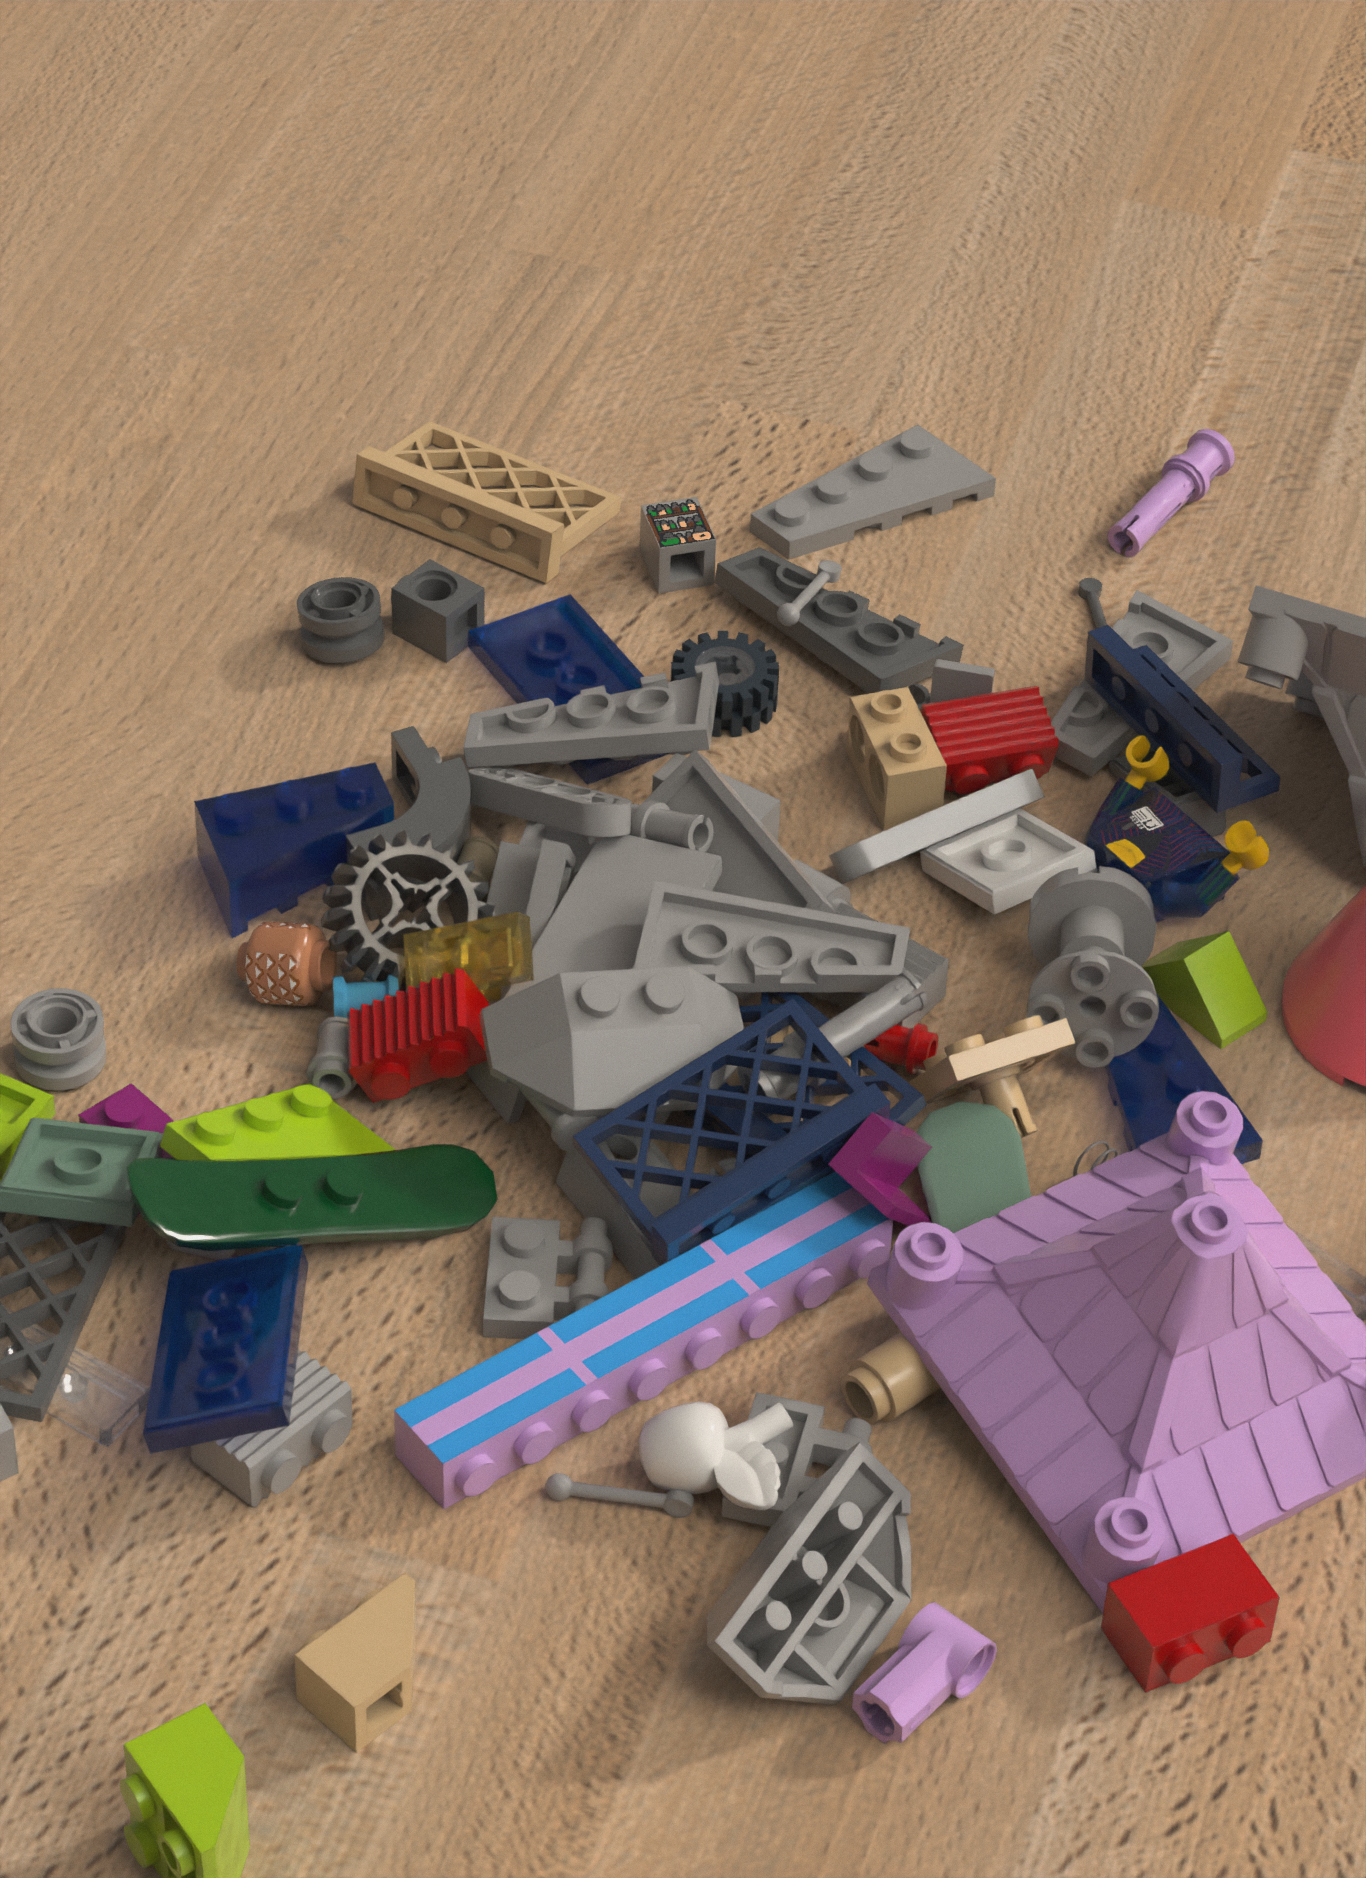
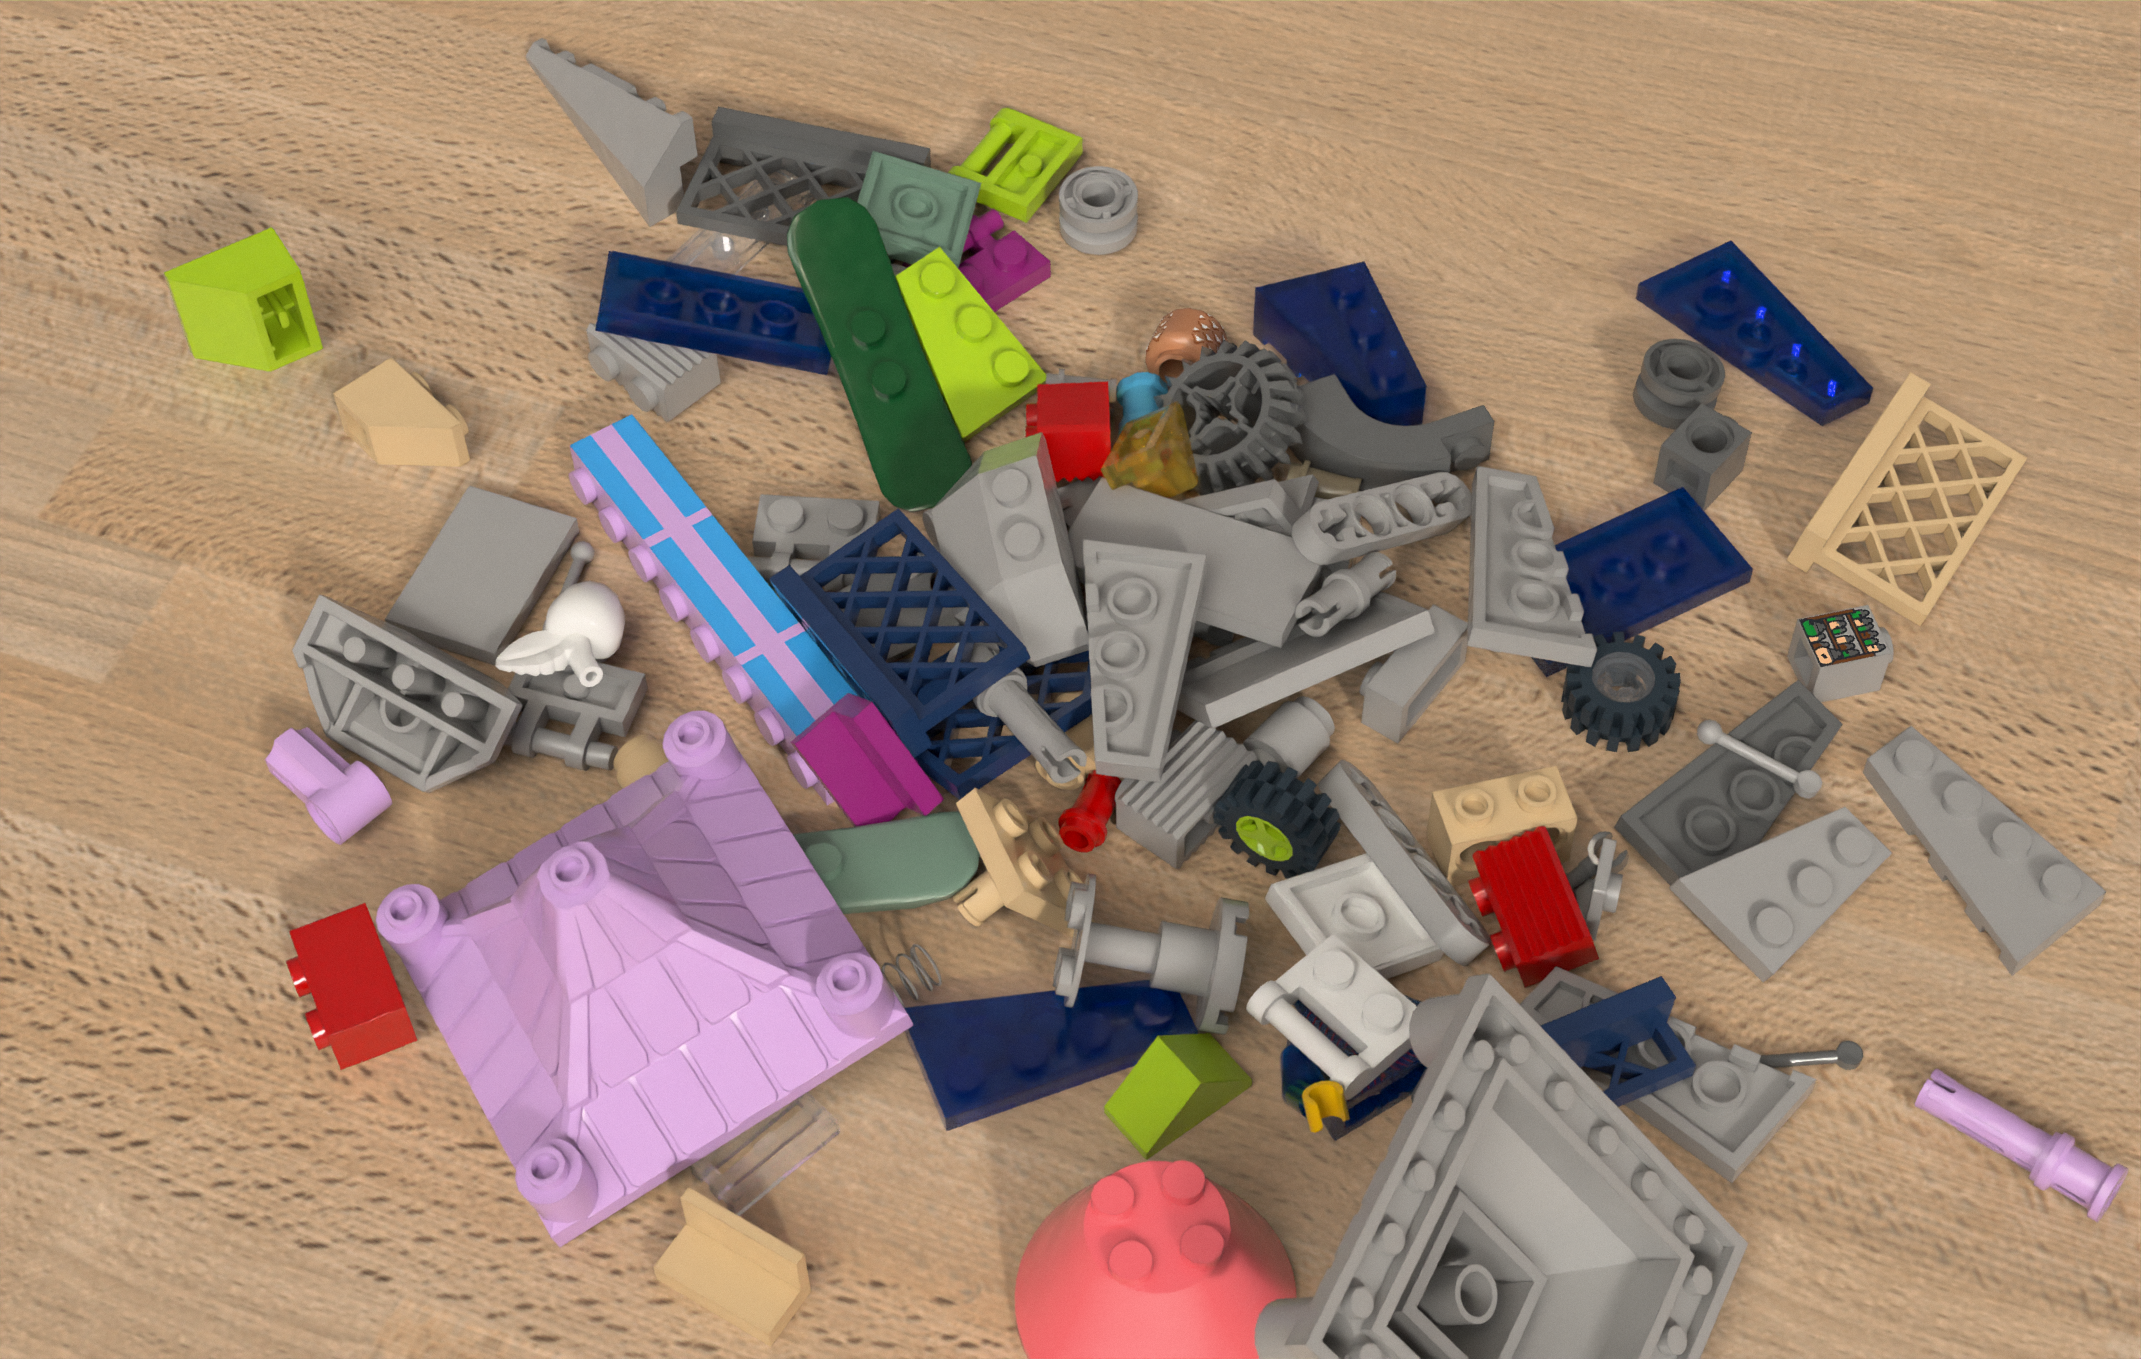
camera: 95 degrees right, 10 degrees up
(256, 573) = (1753, 326): none -> clear blue wing
(597, 1574) = (483, 574): none -> light grey tile
(919, 885) = (1277, 819): none -> black wheel
(937, 596) = (1782, 889): none -> light grey wing
(1137, 827) = (1347, 999): none -> white plate

